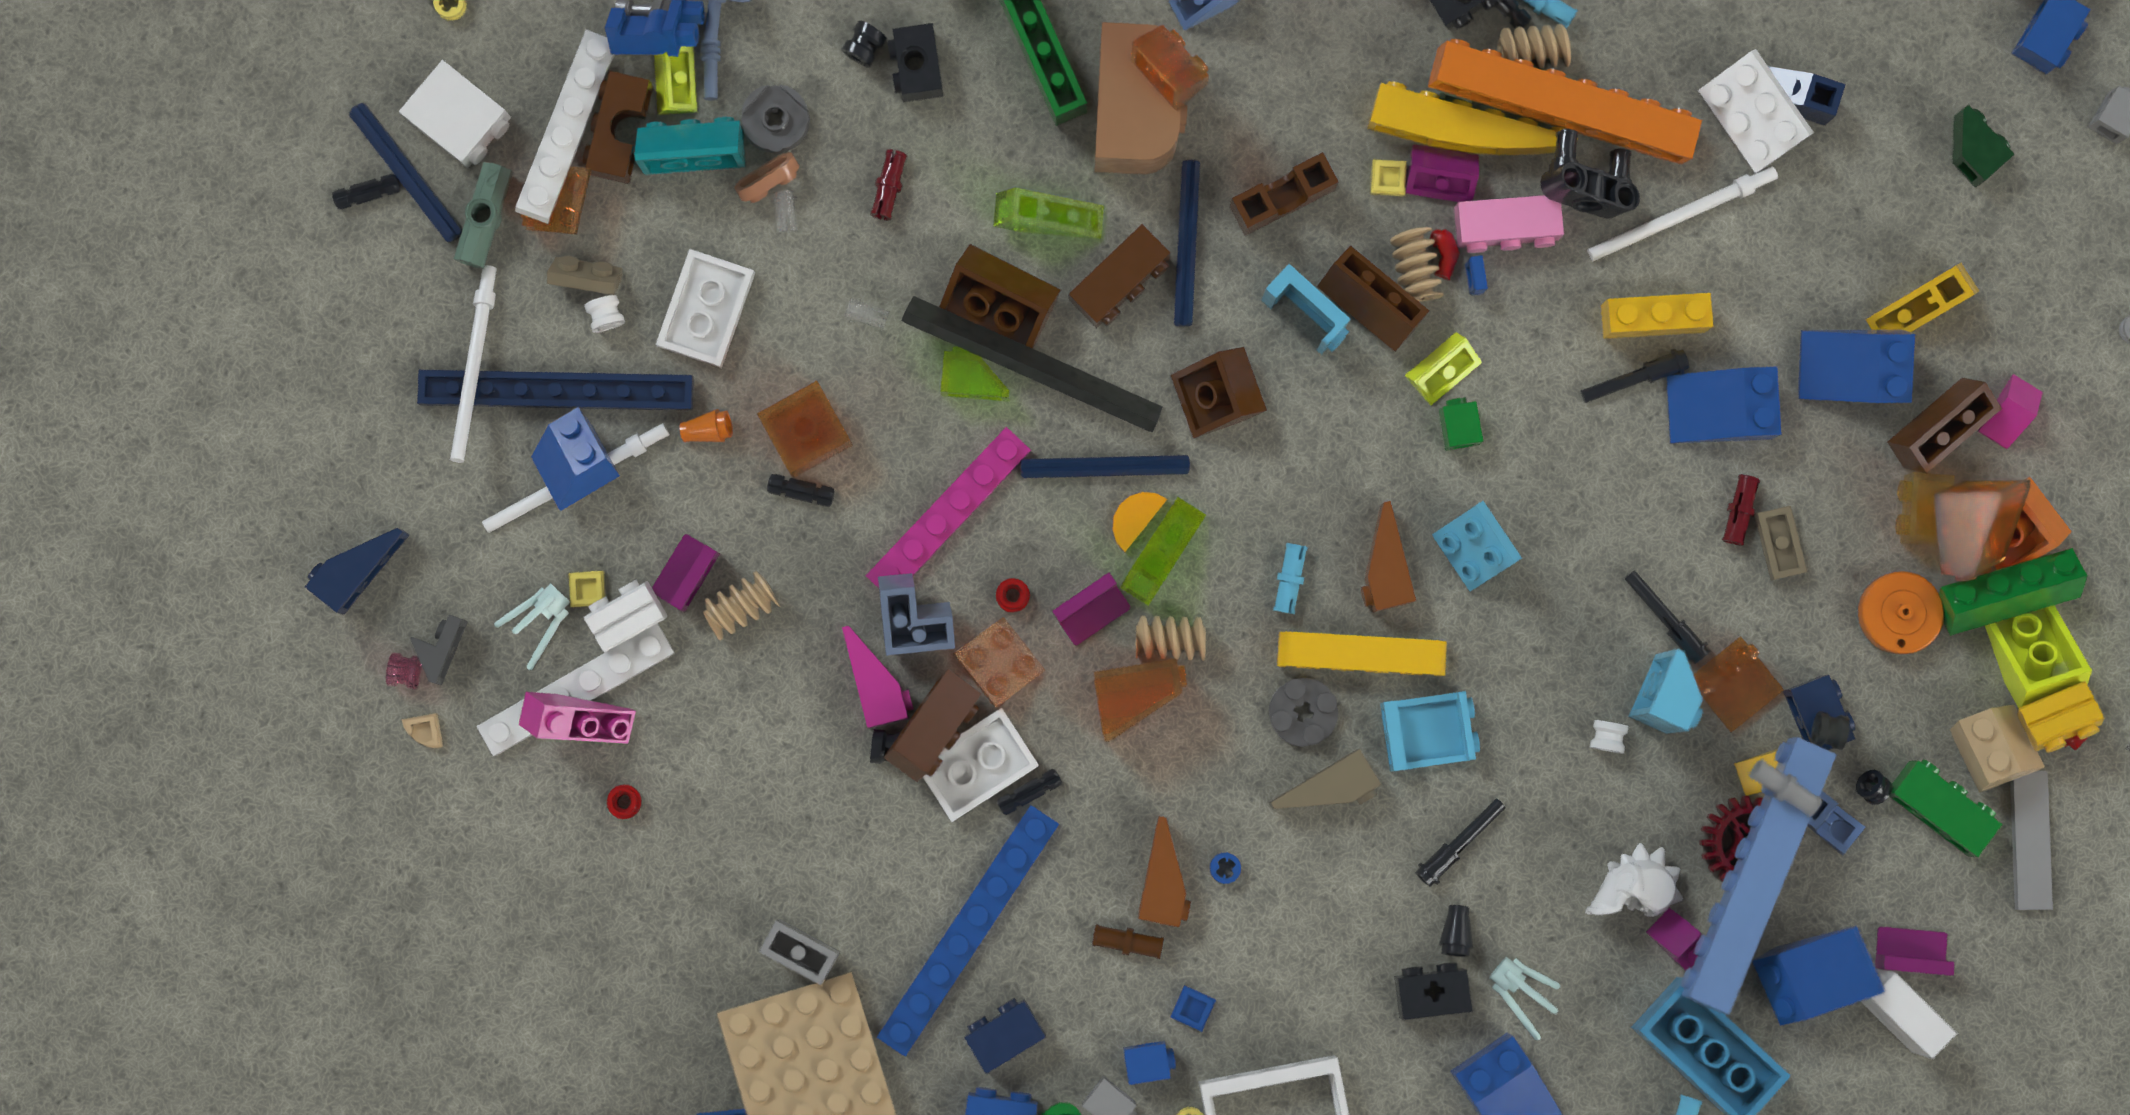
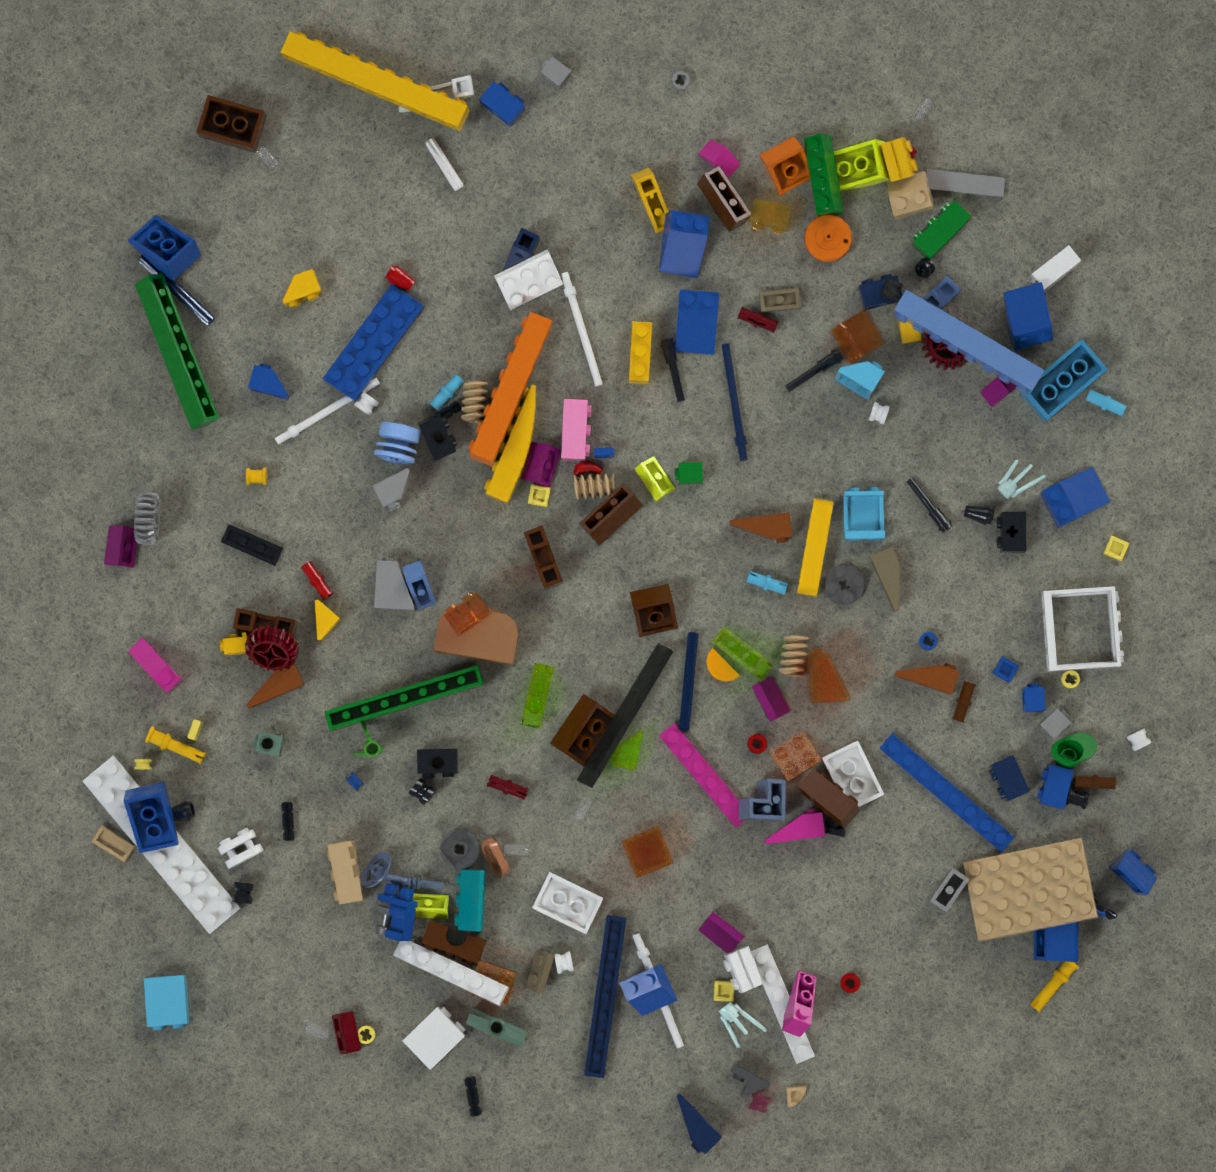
camera: 75 degrees left, 0 degrees up
(405, 172) = (464, 1071): dark blue axle -> none
(483, 301) = (547, 1033): white bar -> none
(709, 427) = (638, 909): orange cone -> none
(739, 605) = (744, 902): tan piece -> none
(800, 490) = (681, 859): black axle -> none
(1029, 791) = (871, 748): black axle -> none
(1120, 277) = (579, 658): reddish brown brick -> none
(1187, 243) = (563, 617): dark blue axle -> none
(1312, 303) = (597, 560): medium azure panel -> none
(1476, 546) = (761, 473): medium azure plate -> none
(1530, 505) = (740, 439): none -> dark blue bar
(1586, 187) = (563, 380): black piece -> none
(1639, 883) = (964, 408): white head -> none
(1785, 787) = (922, 321): light grey pin -> none
(1912, 951) = (1019, 259): magenta panel -> none
(1976, 147) = (565, 156): dark green slope -> none
(1977, 524) = (784, 190): clear orange slope -> none

